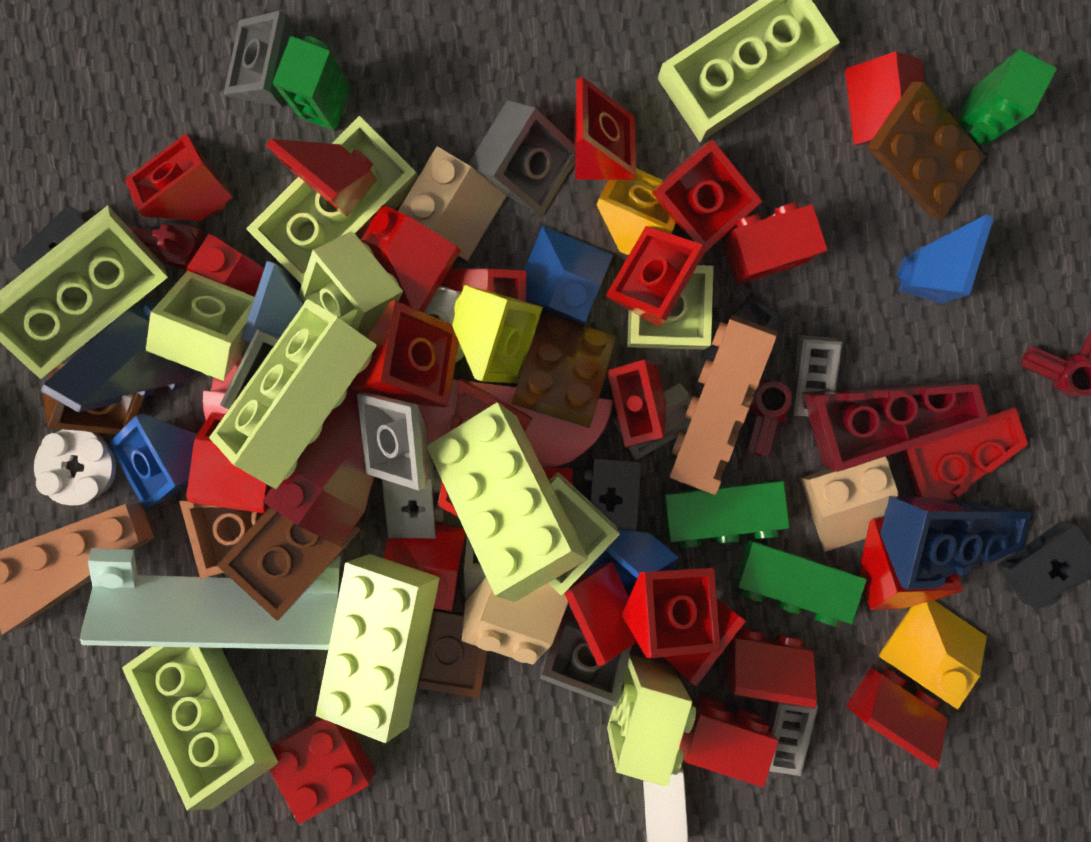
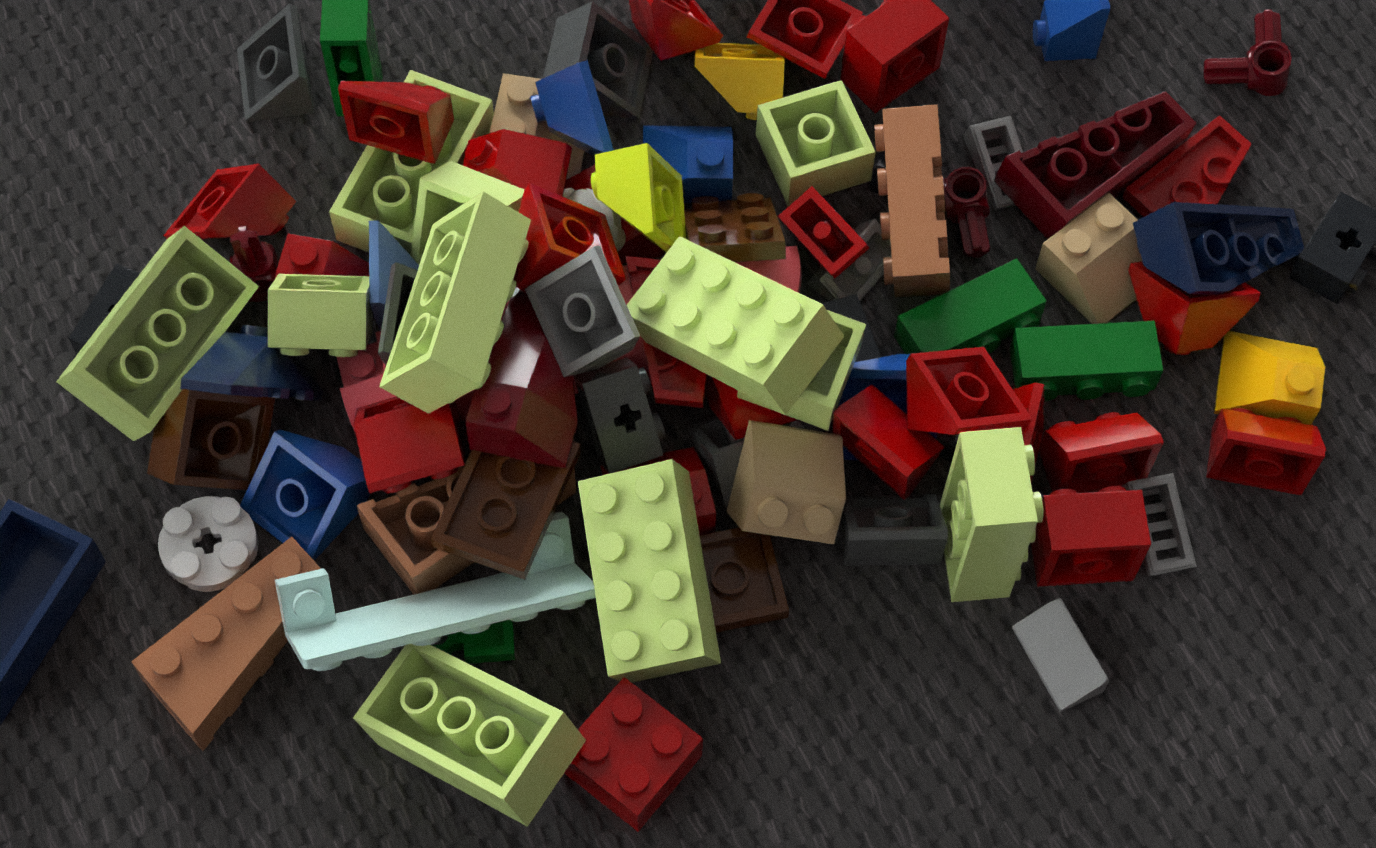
camera: 25 degrees left, 25 degrees down
(476, 219) = (573, 108): none -> blue slope
(655, 274) = (787, 98): red slope -> none

